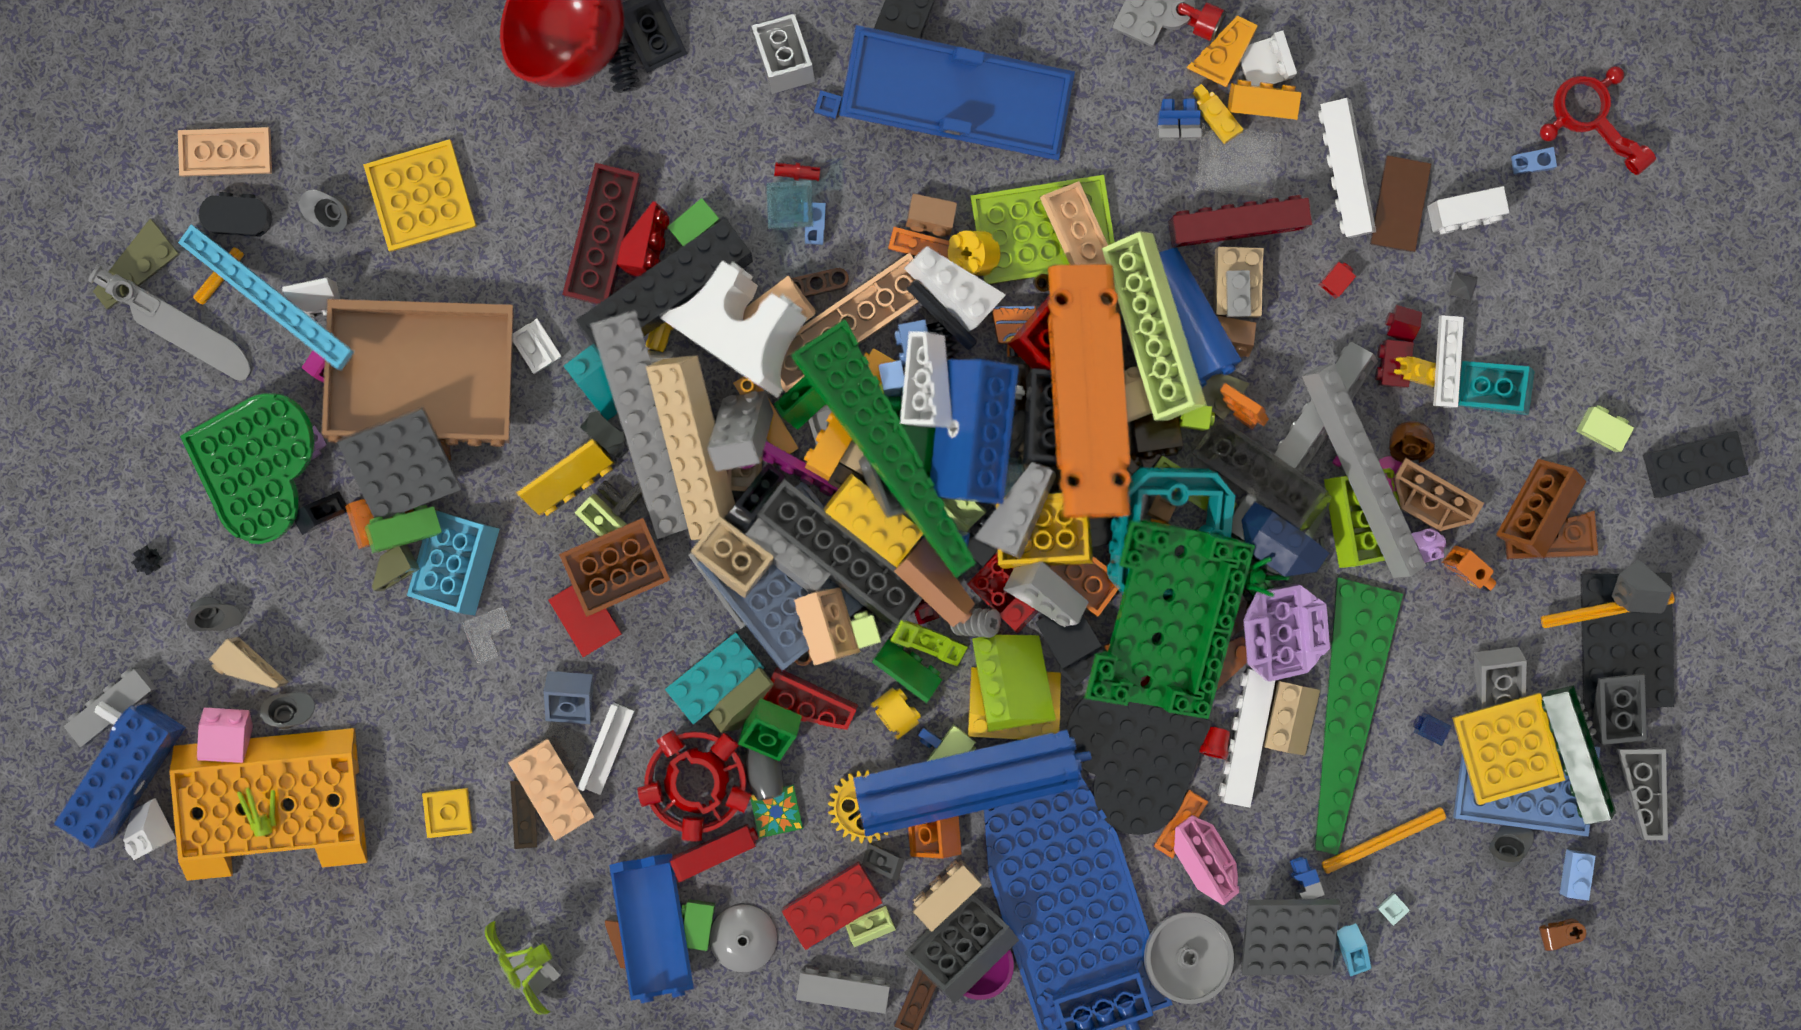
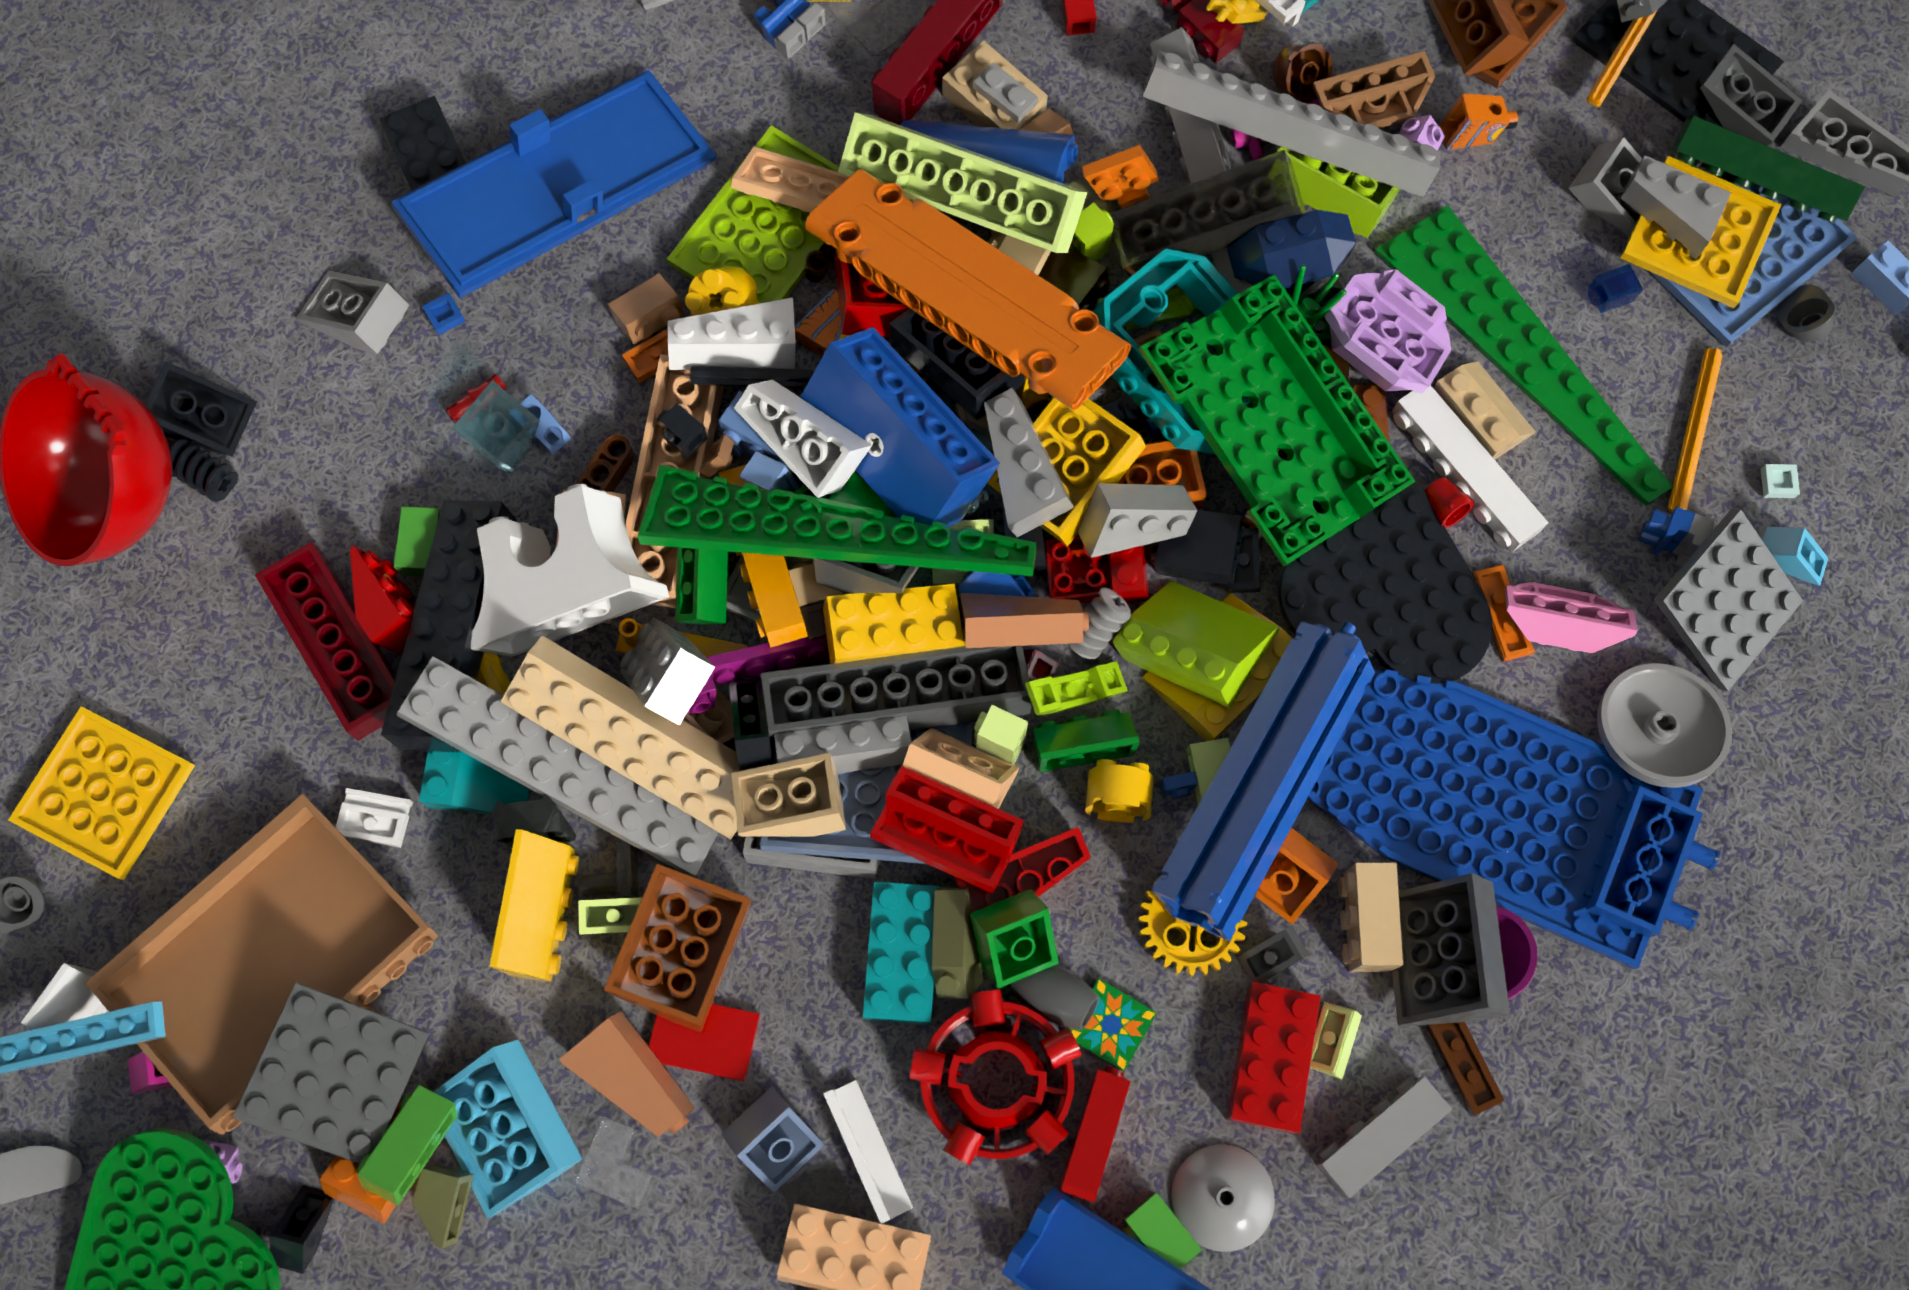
camera: 50 degrees left, 15 degrees down
(533, 600) = (629, 1075): none -> nougat slope
(790, 649) = (947, 829): none -> red slope
(875, 309) = (682, 430): none -> black brick
(880, 340) = (717, 456): none -> medium nougat plate
(1507, 724) = (1676, 202): none -> light grey wedge

